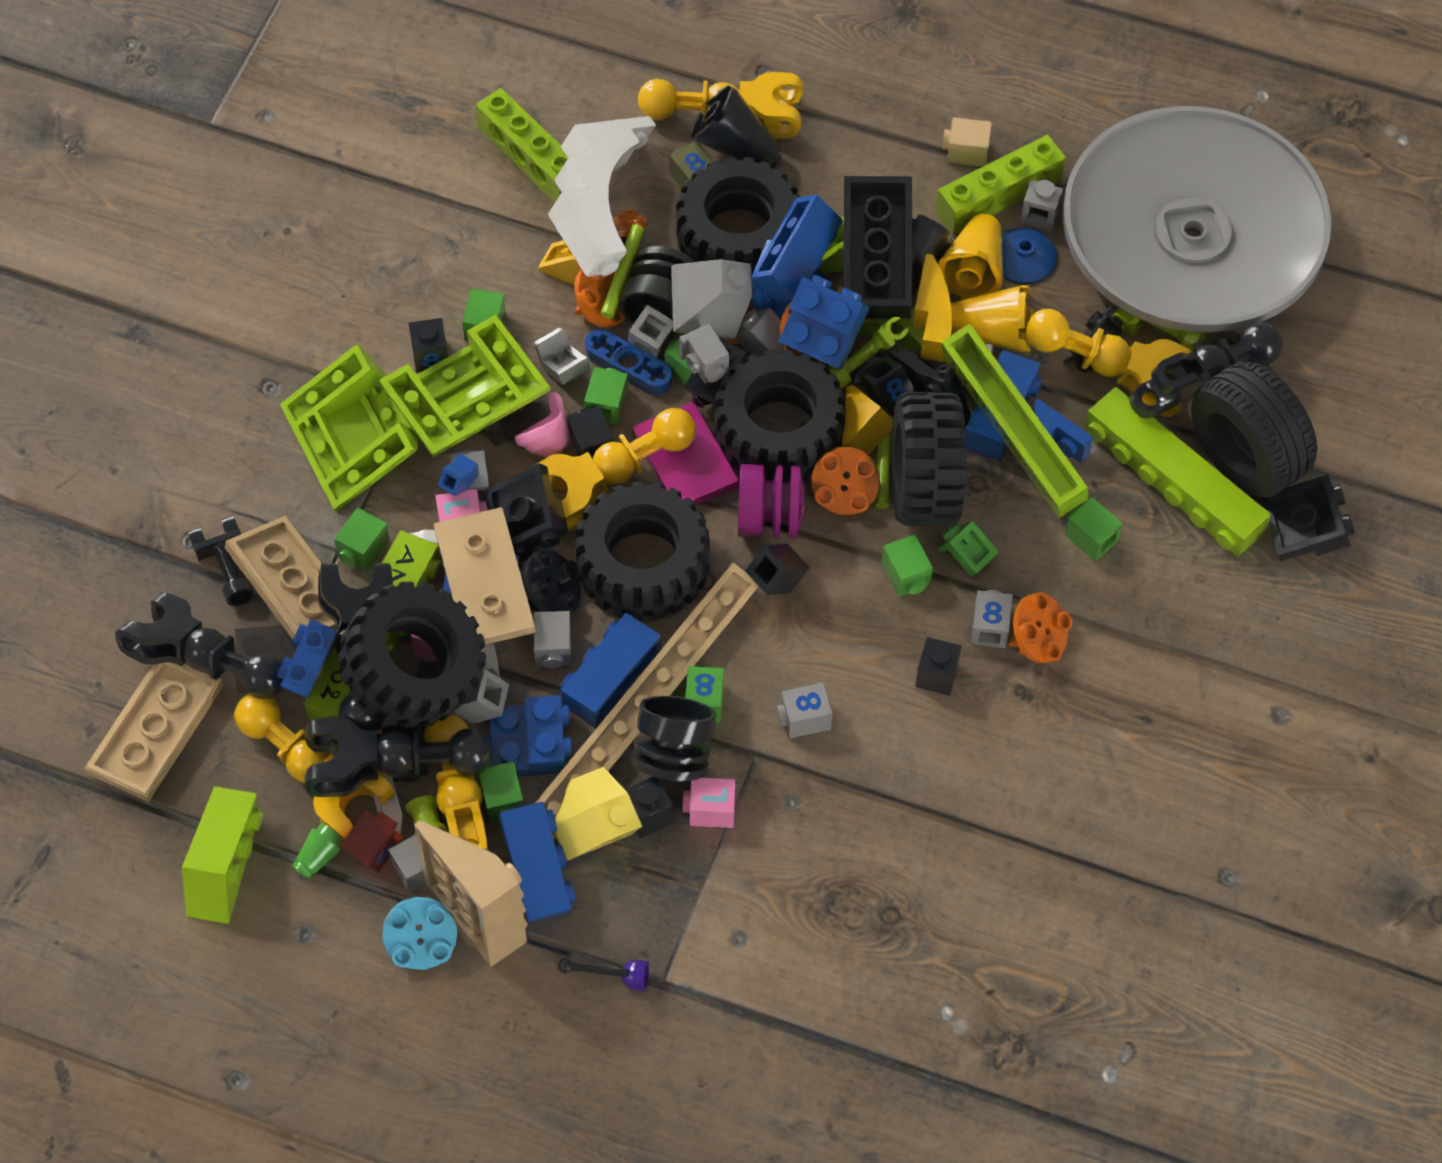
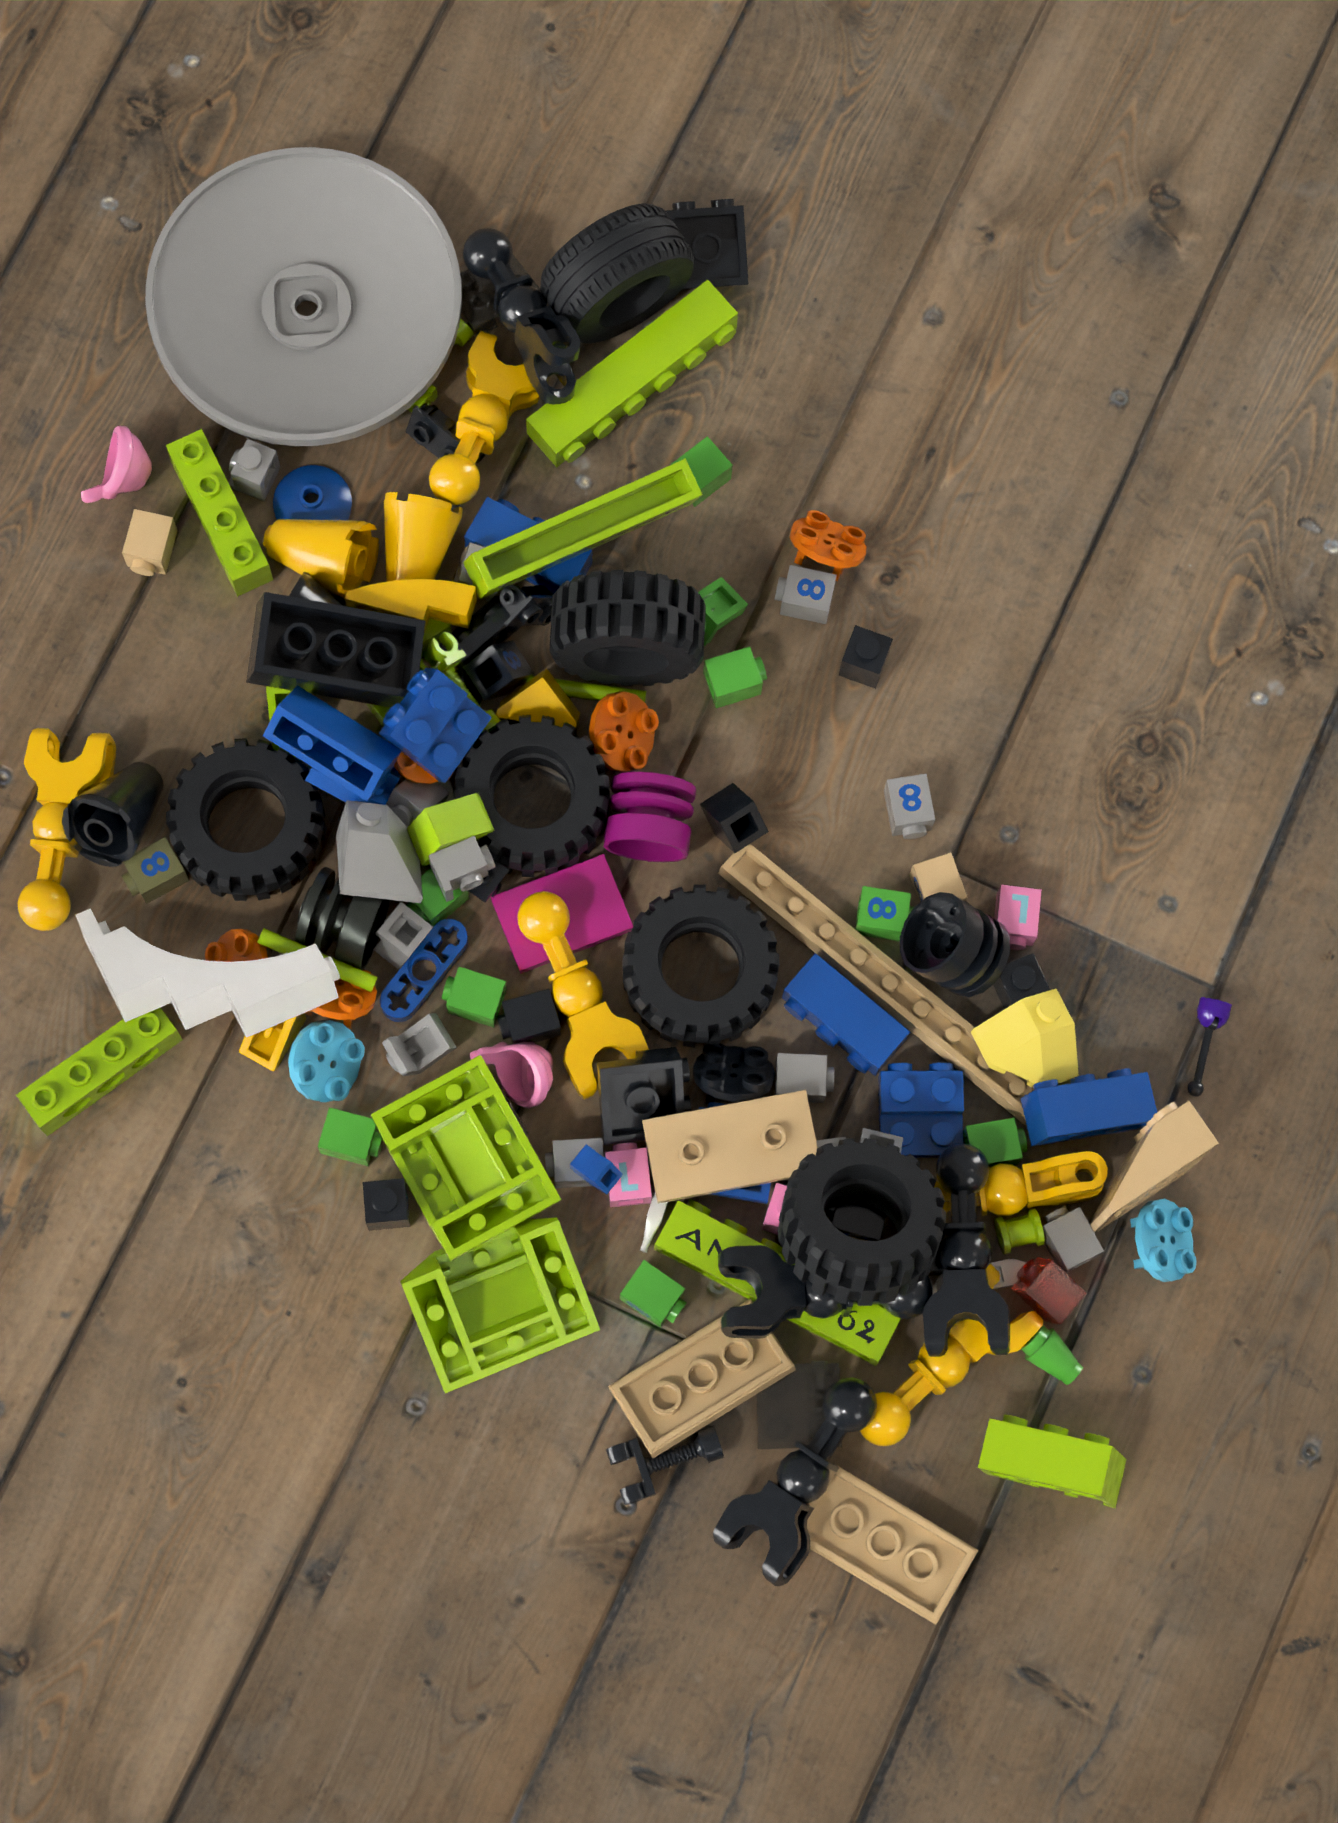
camera: 90 degrees left, 15 degrees up
(302, 670) = (845, 1344): blue plate -> none
(528, 287) = (315, 1077): none -> medium azure plate
(734, 738) = (937, 876): none -> tan brick
(741, 343) = (448, 824): none -> lime slope
(1031, 117) = (125, 467): none -> bright pink hat
(1068, 436) = (568, 493): blue slope -> none

